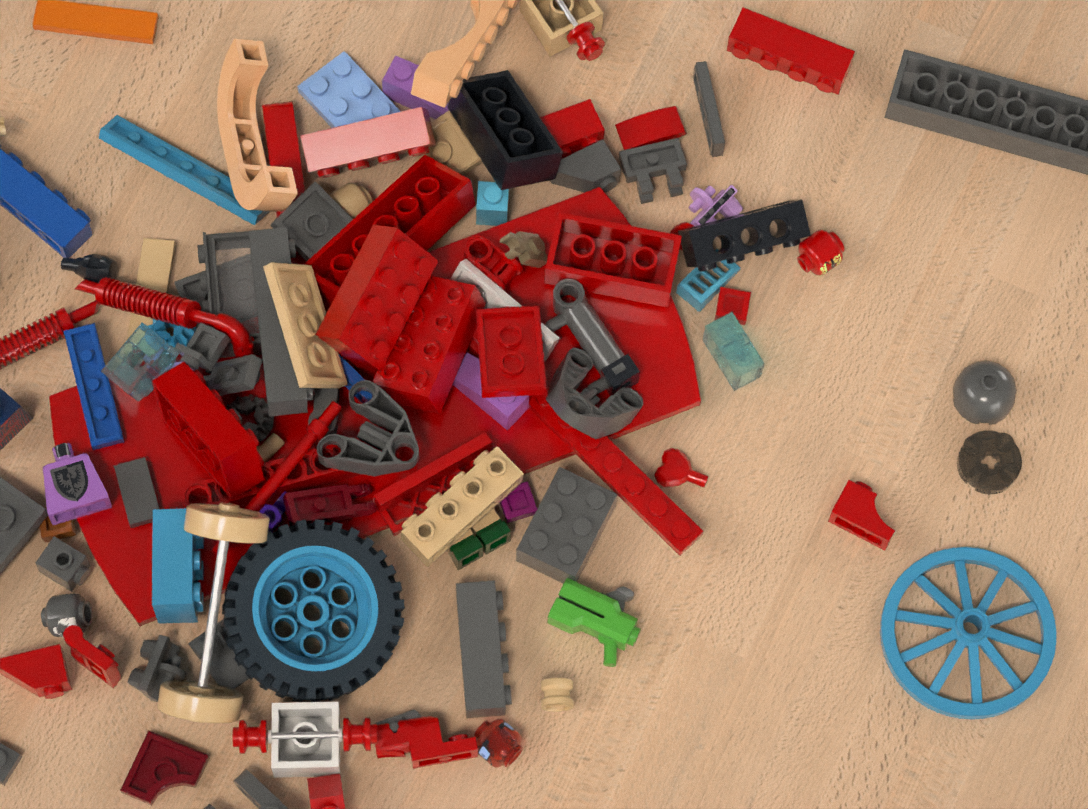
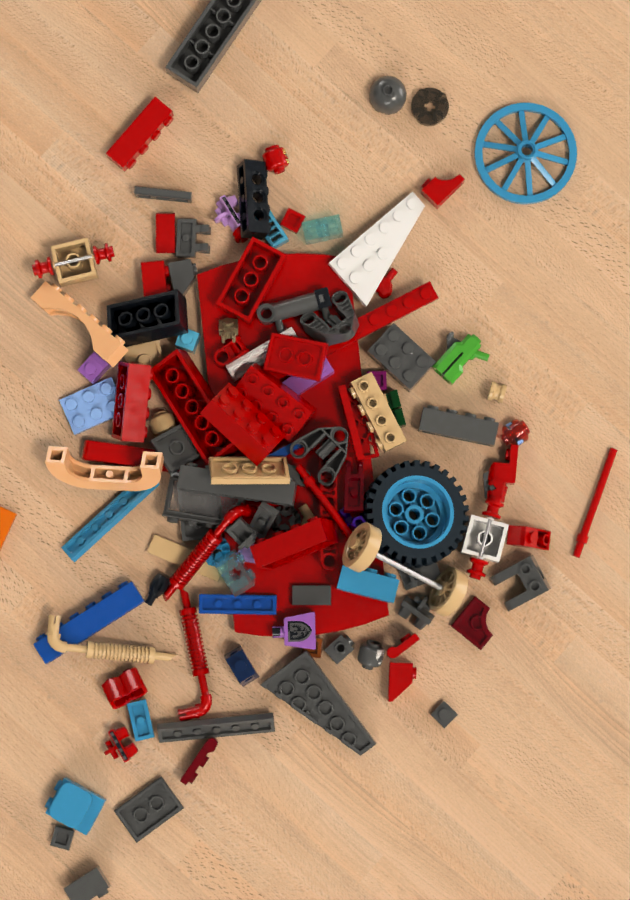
camera: 65 degrees left, 15 degrees up
(717, 434) = (370, 255): none -> white wing

